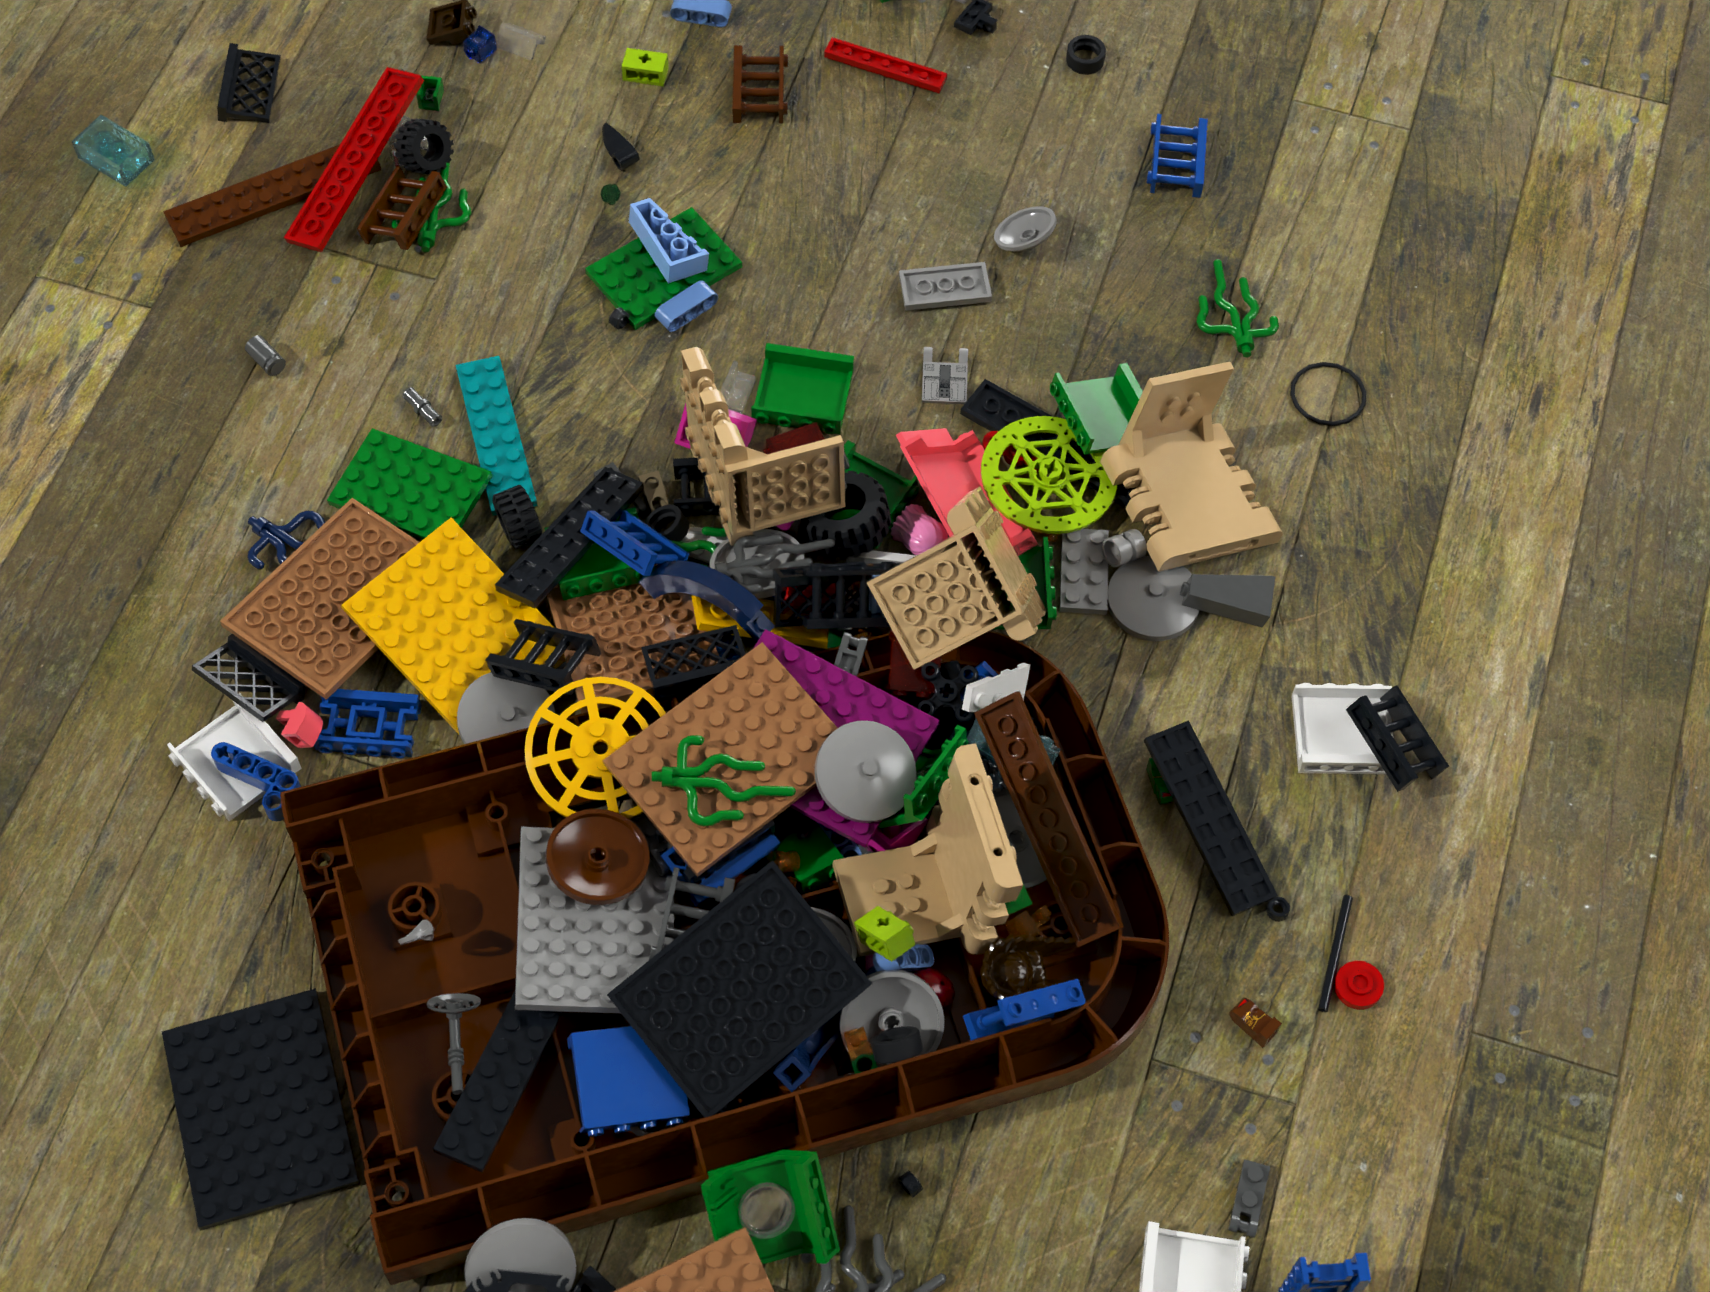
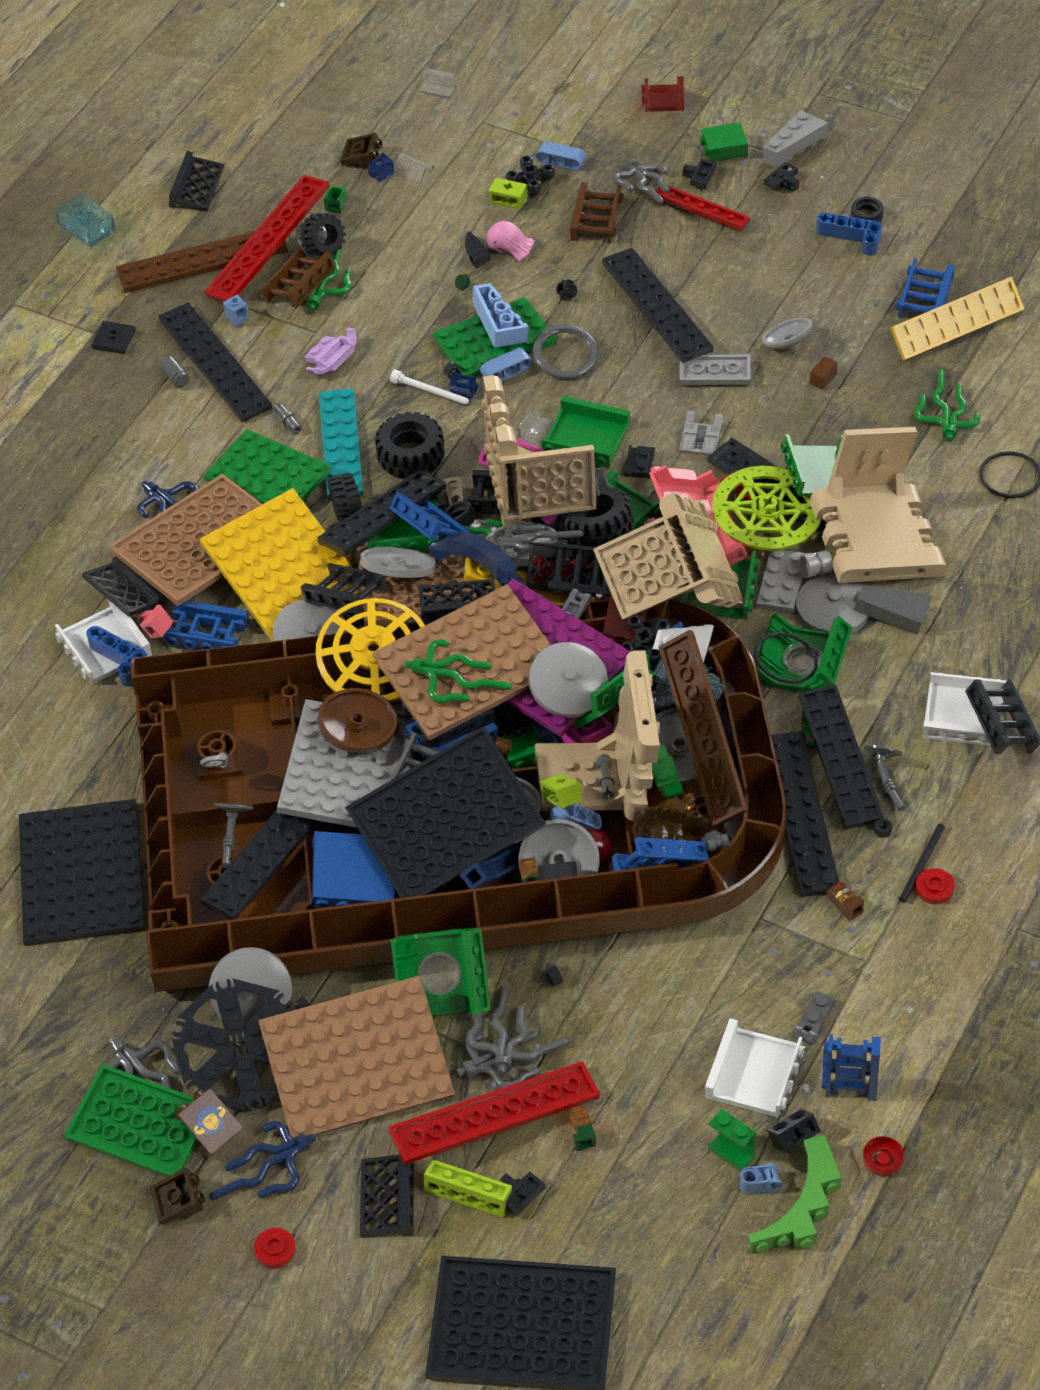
camera: 15 degrees right, 10 degrees down
(176, 312) = (113, 337): none -> black plate
(314, 335) = (215, 362): none -> black plate
(329, 260) = (236, 310): none -> medium blue brick
(462, 308) = (331, 352): none -> lavender plate
(552, 336) = (399, 378): none -> white piece
(580, 408) = (405, 429): none -> black tyre
(605, 611) = (397, 562): none -> light grey dish
(637, 339) = (463, 385): none -> clear blue window
(659, 128) = (509, 237): none -> bright pink piece
(668, 39) = (531, 174): none -> black gear
(733, 301) = (565, 328): none -> dark grey wedge
(742, 193) = (566, 289): none -> black gear
(805, 27) = (642, 173): none -> dark grey plant
(858, 204) = (657, 305): none -> black plate
(874, 20) = (700, 174): none -> black hinge
(876, 422) = (639, 461): none -> black plate
(936, 907) = (606, 782): none -> dark grey pin
(1074, 80) = (851, 229): none -> blue beam
(1078, 277) = (823, 372): none -> reddish brown piece
(1087, 971) = (715, 839): none -> dark grey plate
(1096, 709) = (783, 679): none -> black piece
(1134, 677) = (793, 660): none -> green panel
(1192, 940) = (804, 817): none -> black plate
(1224, 190) = (957, 318): none -> yellow plate
(1258, 809) = (882, 754): none -> dark grey dish

